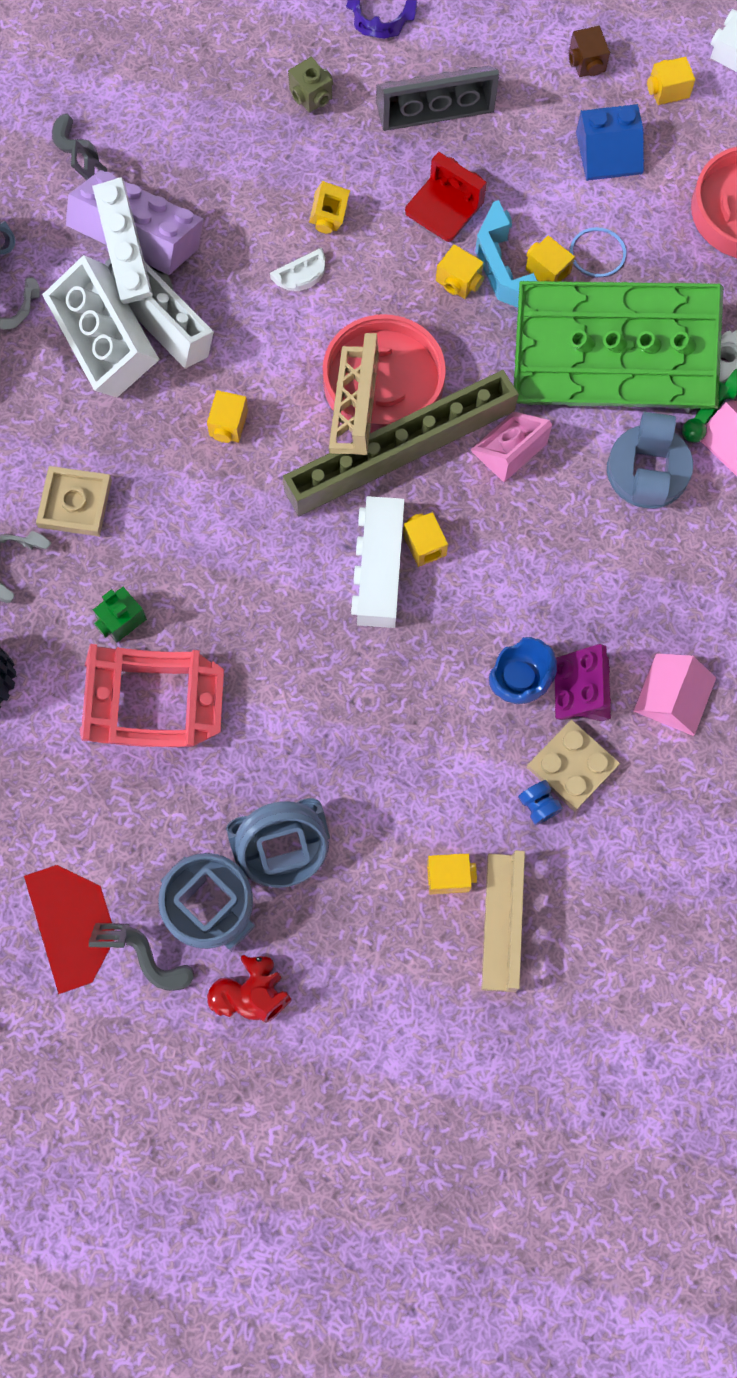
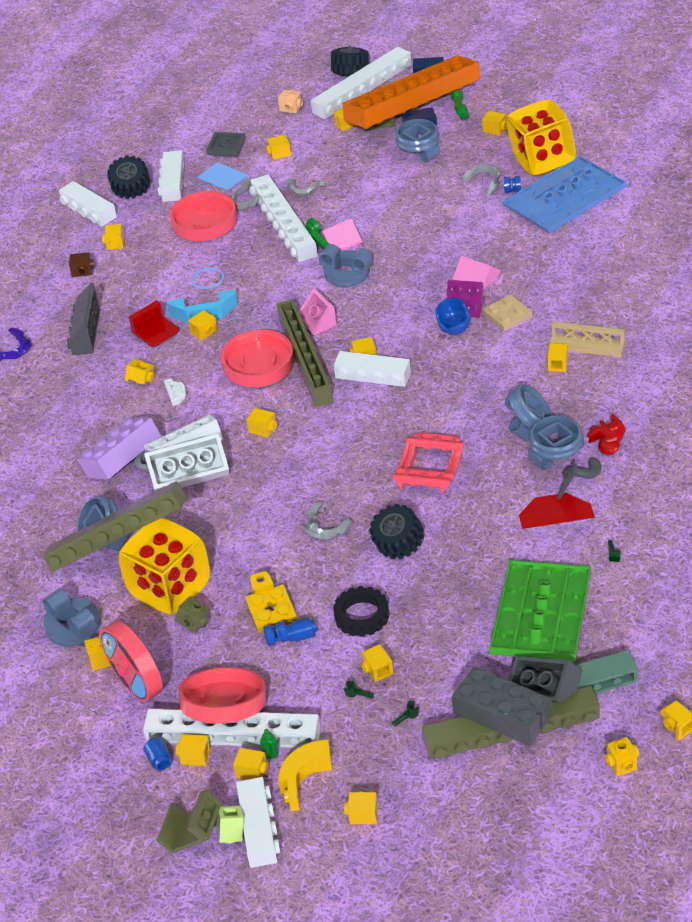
camera: 70 degrees left, 30 degrees down
(60, 138) = (33, 488): dark grey piece -> none
(74, 501) = (294, 491): tan plate -> none
(118, 614) = (373, 472): green brick -> none
(122, 241) = (139, 437): white plate -> none
(310, 84) = (54, 372): olive brick -> none
(361, 399) = (275, 353): tan fence -> none
(540, 802) = (525, 322): blue wheel -> none
(549, 260) = (209, 290): yellow brick -> none
(611, 142) = (143, 262): blue slope -> none
(619, 344) = (274, 262): bright green piece -> none

